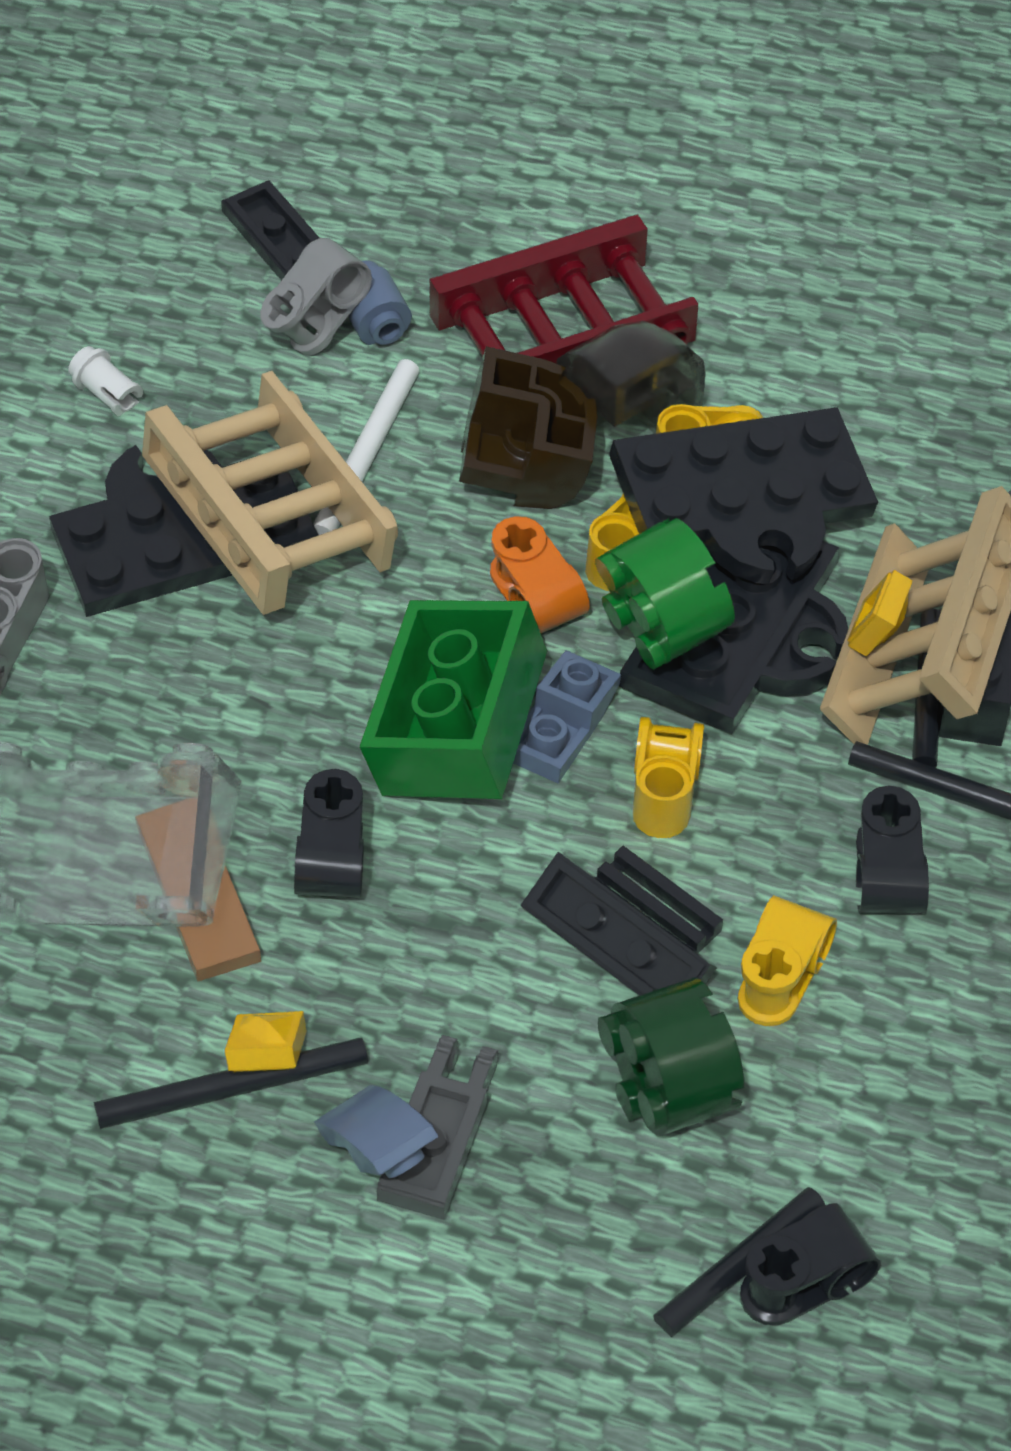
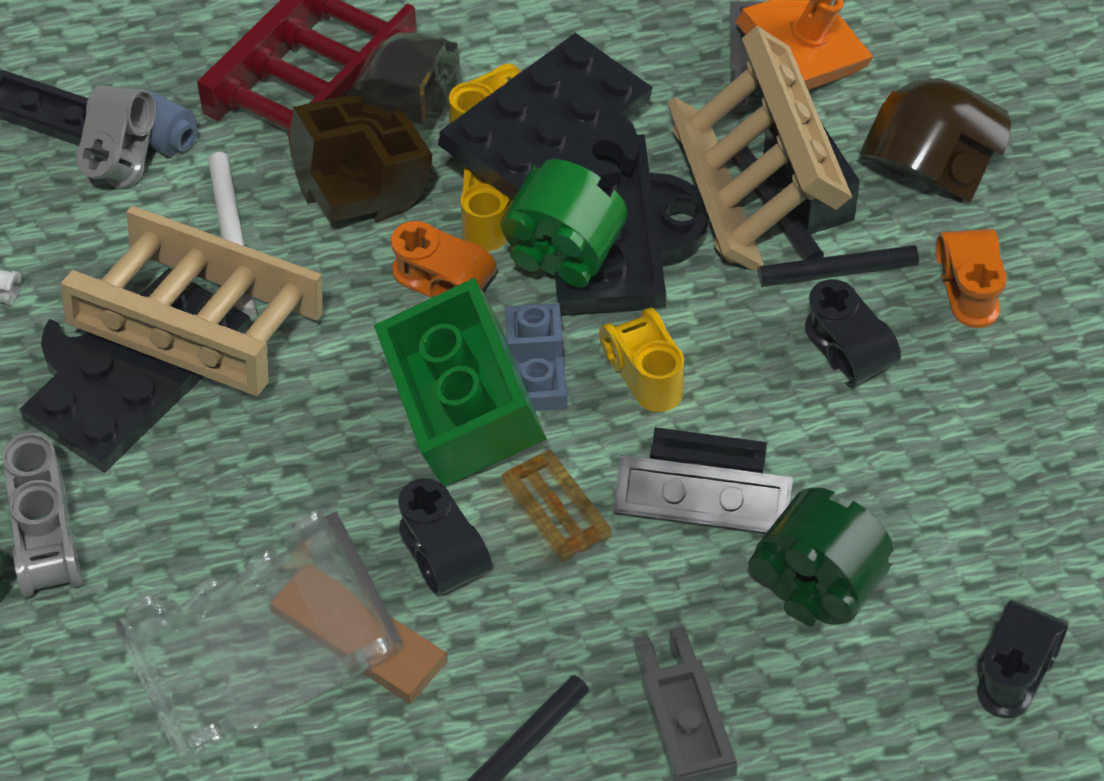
camera: 30 degrees left, 0 degrees up
(265, 1041) = (506, 718): yellow tile -> none
(378, 1131) = (650, 732): sand blue slope -> none
(472, 914) = (578, 539): none -> clear orange tile
(730, 1268) = (965, 683): black bar -> none
(782, 960) = (832, 446): yellow piece -> none
(880, 613) = (722, 162): yellow tile -> none

